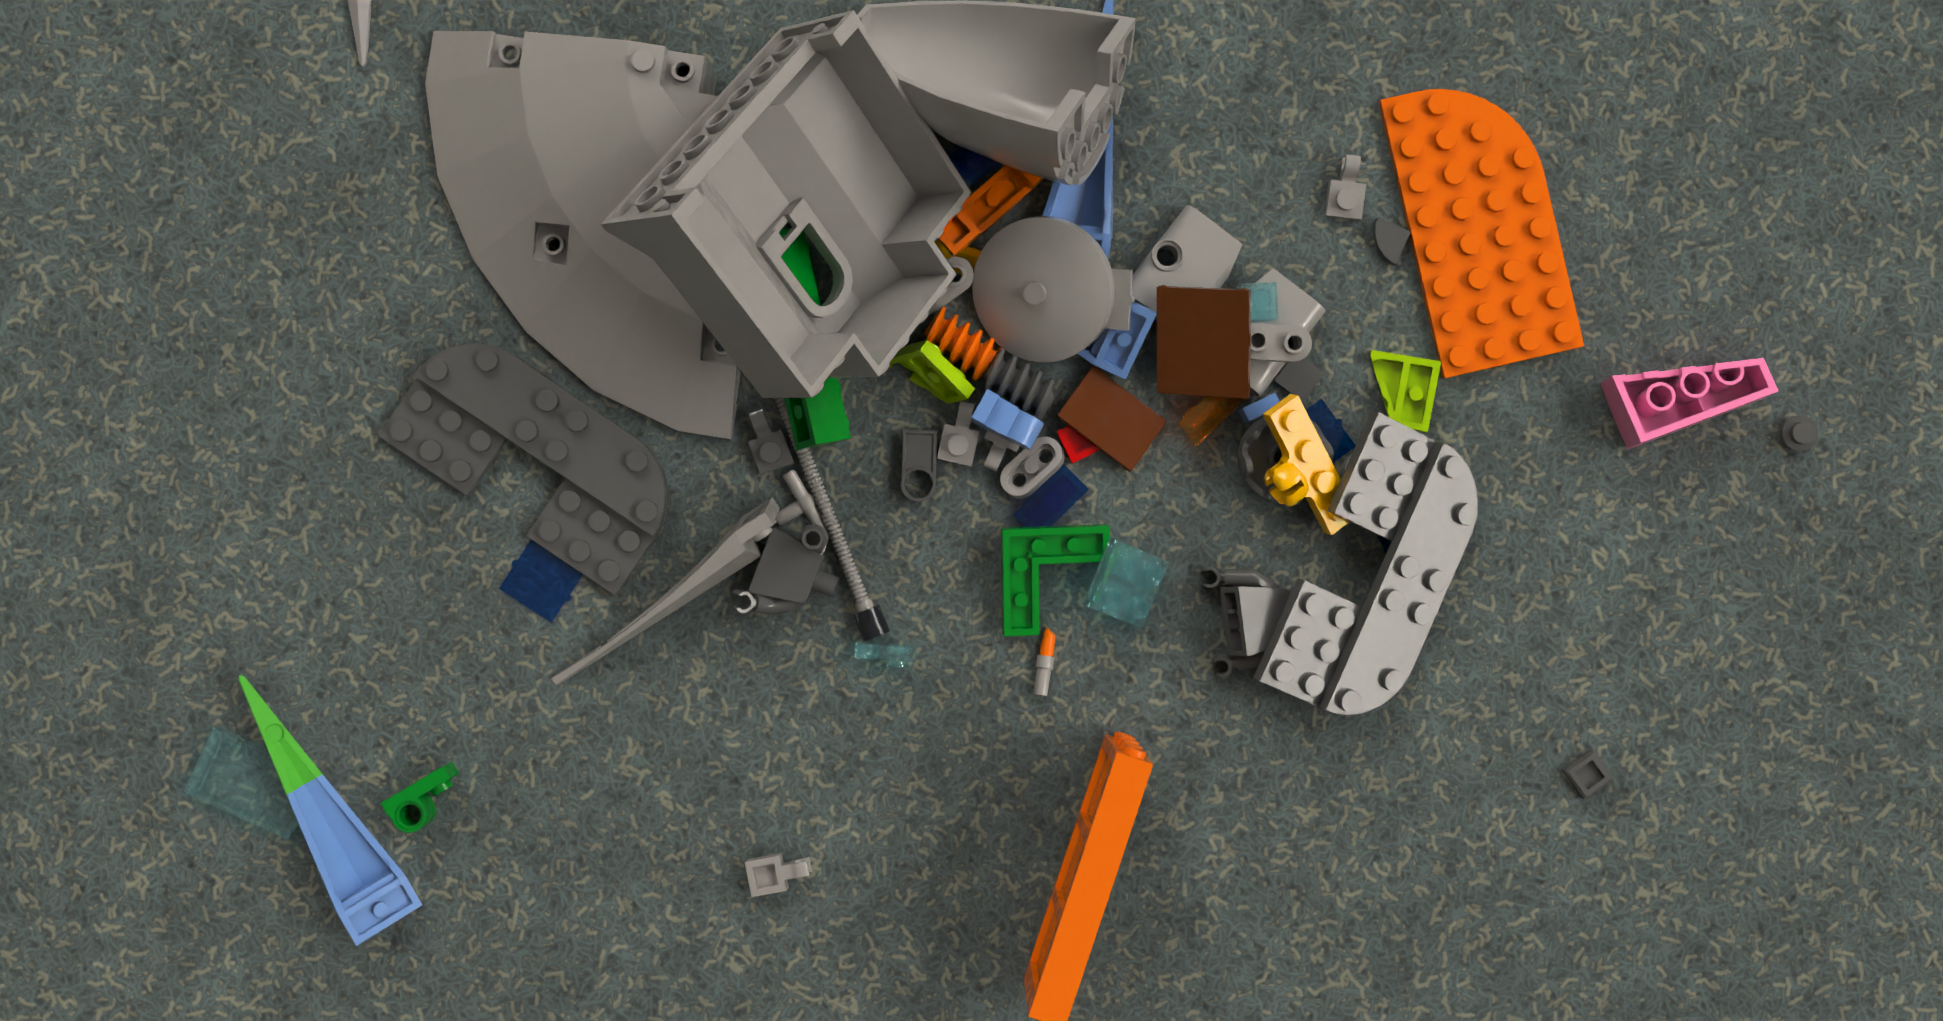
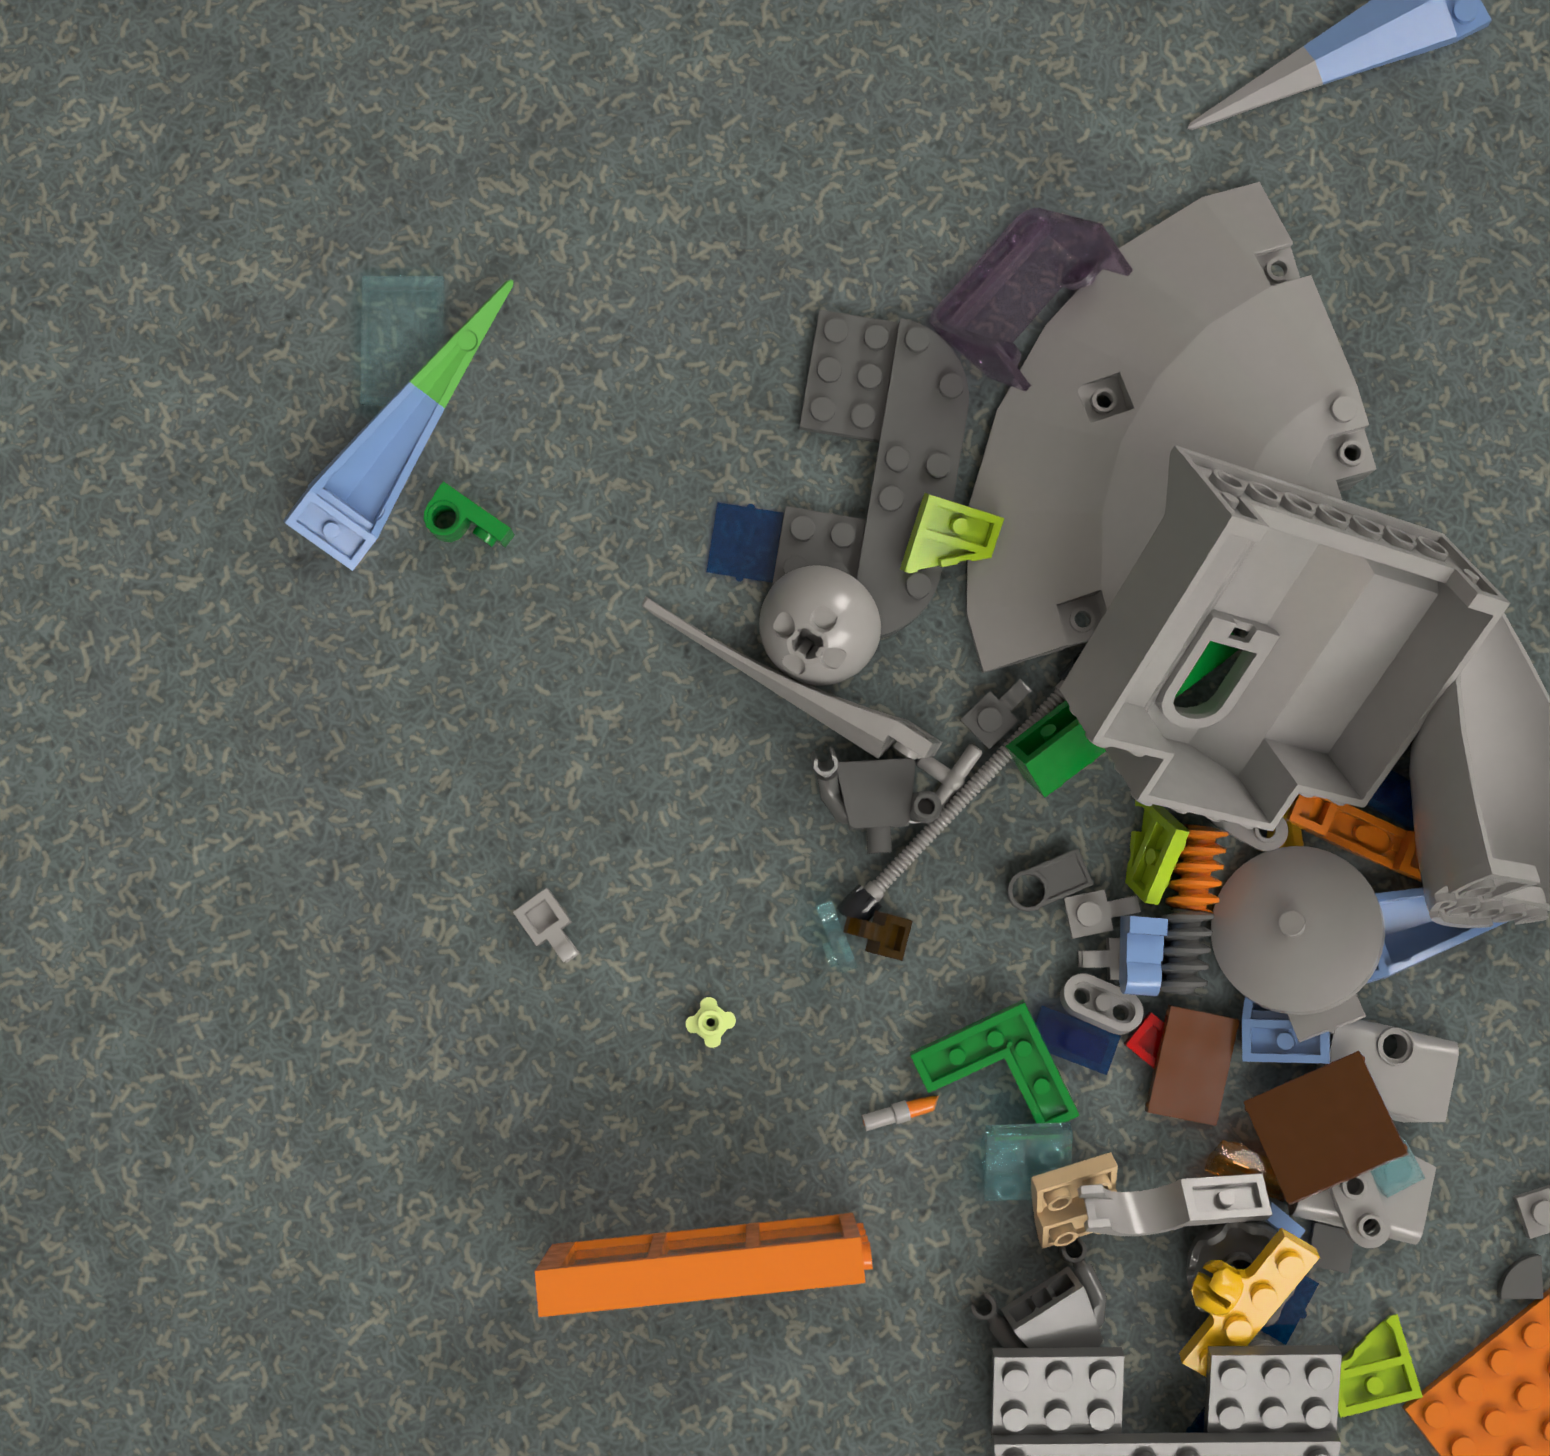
camera: 65 degrees right, 5 degrees down
(428, 268) = (1016, 281): none -> clear purple windscreen
(606, 418) = (949, 534): none -> lime wing
(624, 542) = (828, 610): none -> light grey piece
(902, 613) = (885, 934): none -> dark brown plate
(918, 782) = (710, 1034): none -> yellowish green plate
(1173, 559) = (1056, 1202): none -> tan slope
(1210, 486) = (1176, 1205): none -> light grey piece

